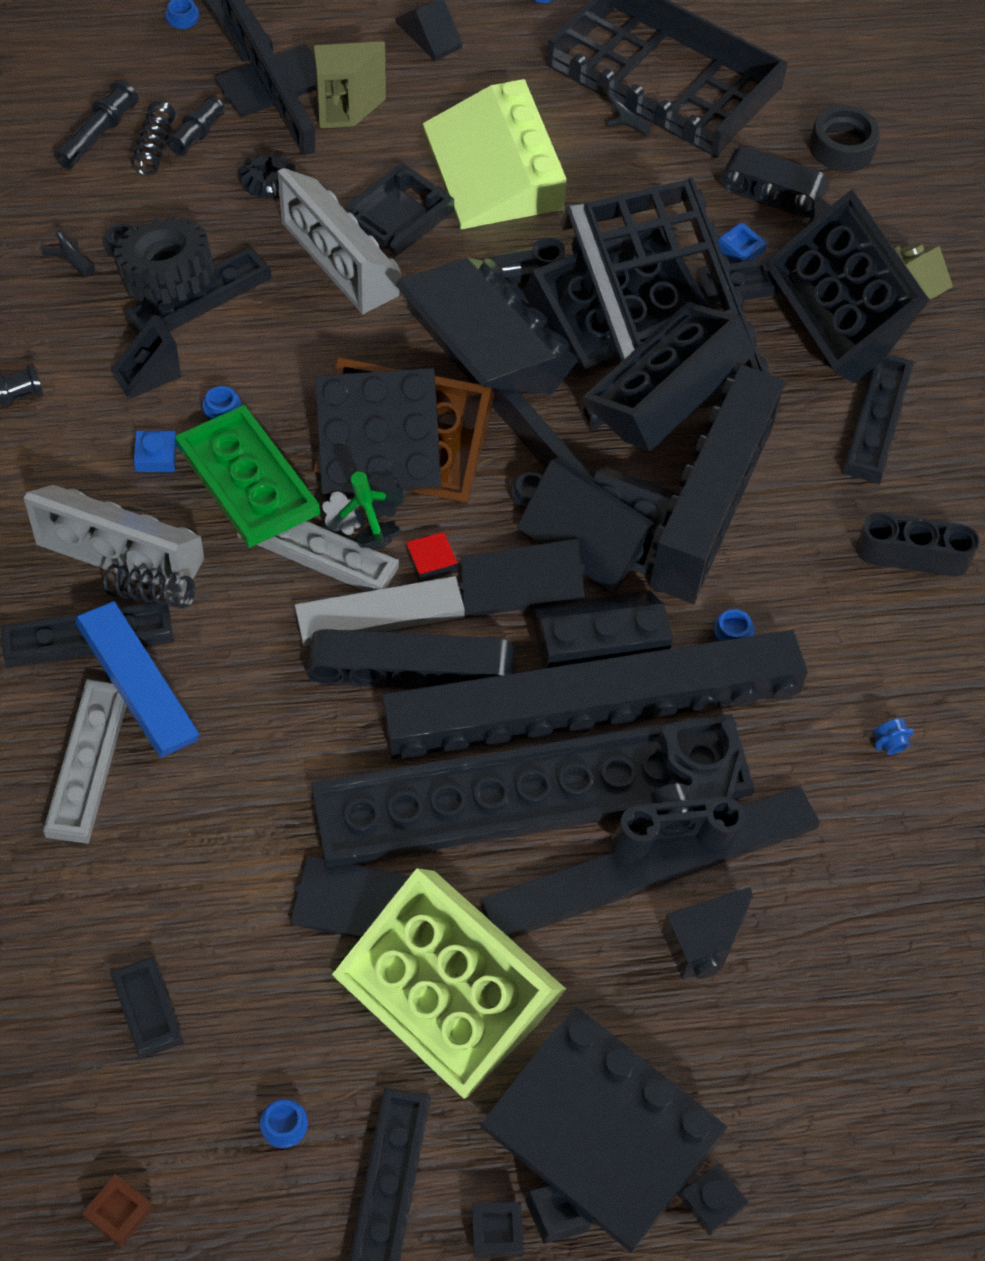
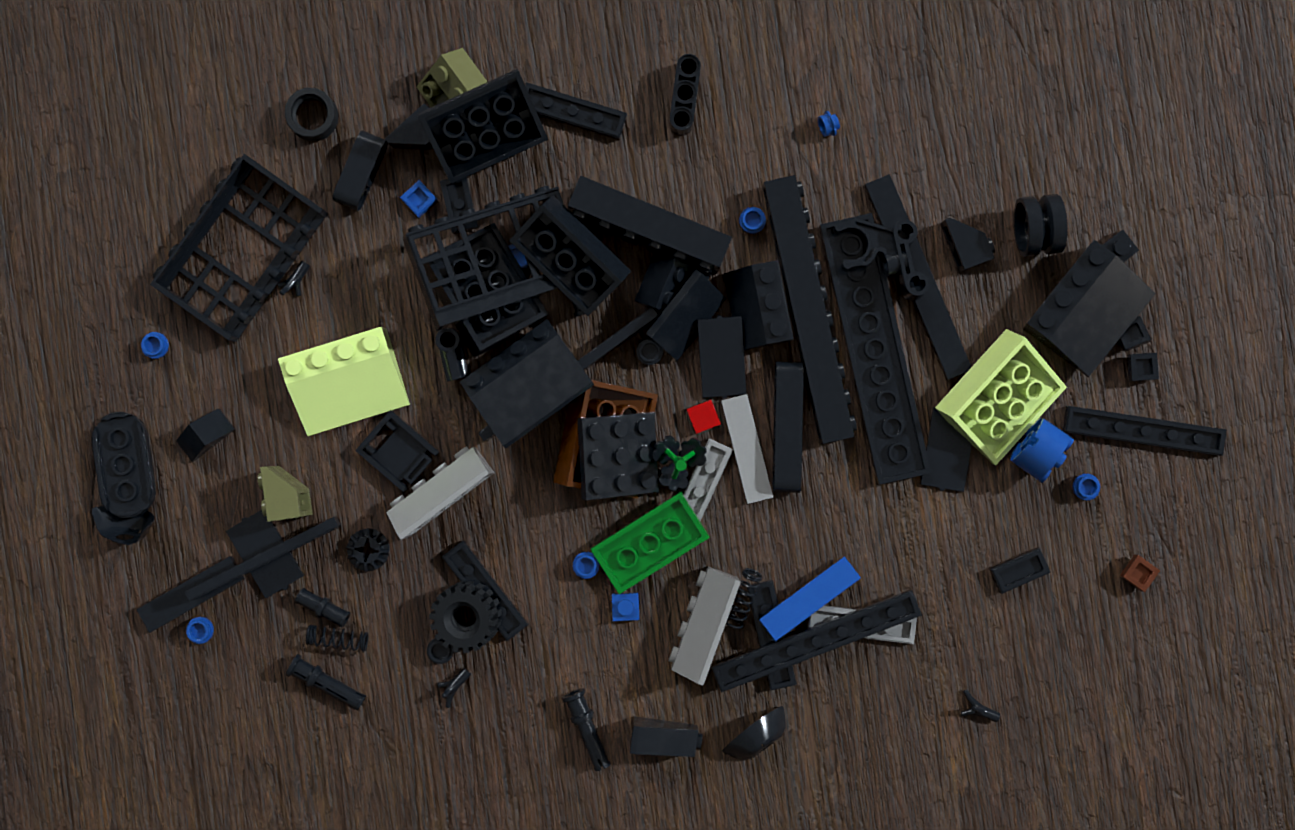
camera: 90 degrees left, 30 degrees up
(71, 692) = (816, 640): none -> black tile
(148, 360) = (555, 620): black slope -> none
(355, 1028) = (1041, 449): none -> blue brick
(747, 1036) = (1040, 225): none -> black wheel

